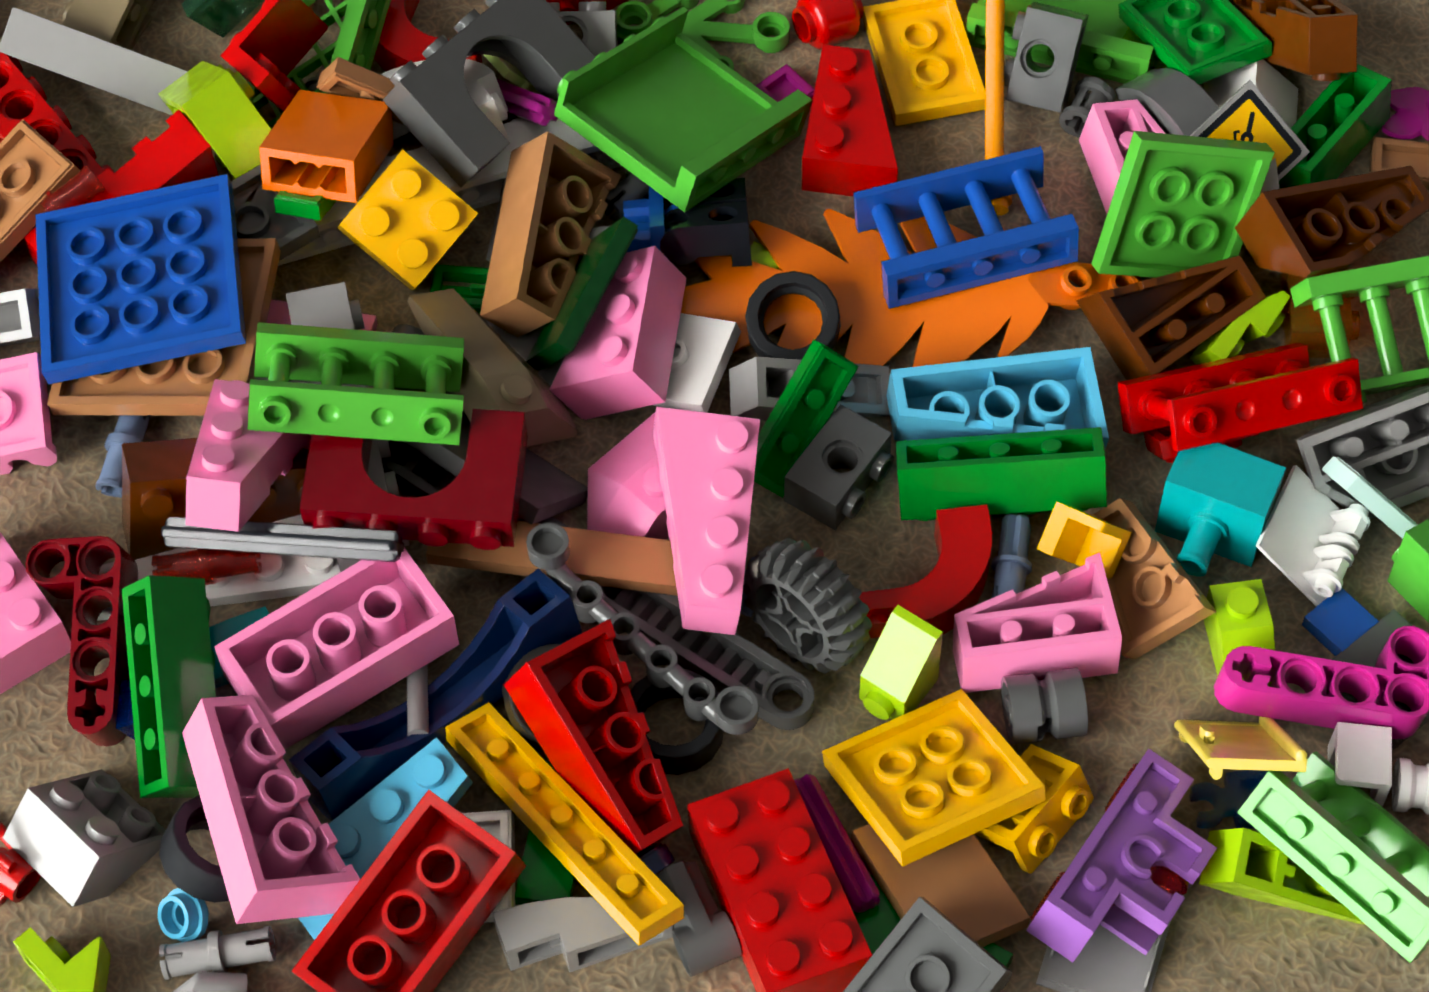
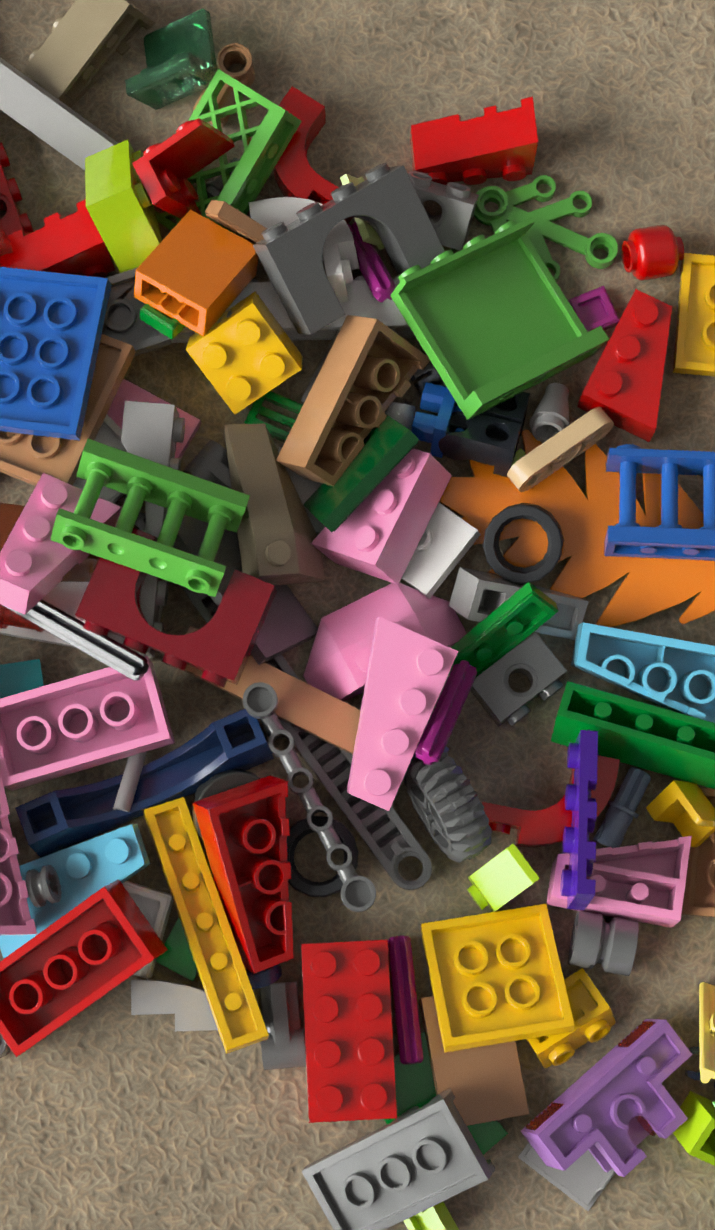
camera: 20 degrees right, 20 degrees up
(351, 833) = (43, 886): none -> dark grey bush
(769, 501) = (446, 713): none -> magenta axle
(777, 198) = (551, 413): none -> light grey cone
(799, 219) = (560, 449): none -> tan beam
(974, 571) = (574, 883): none -> dark purple wing

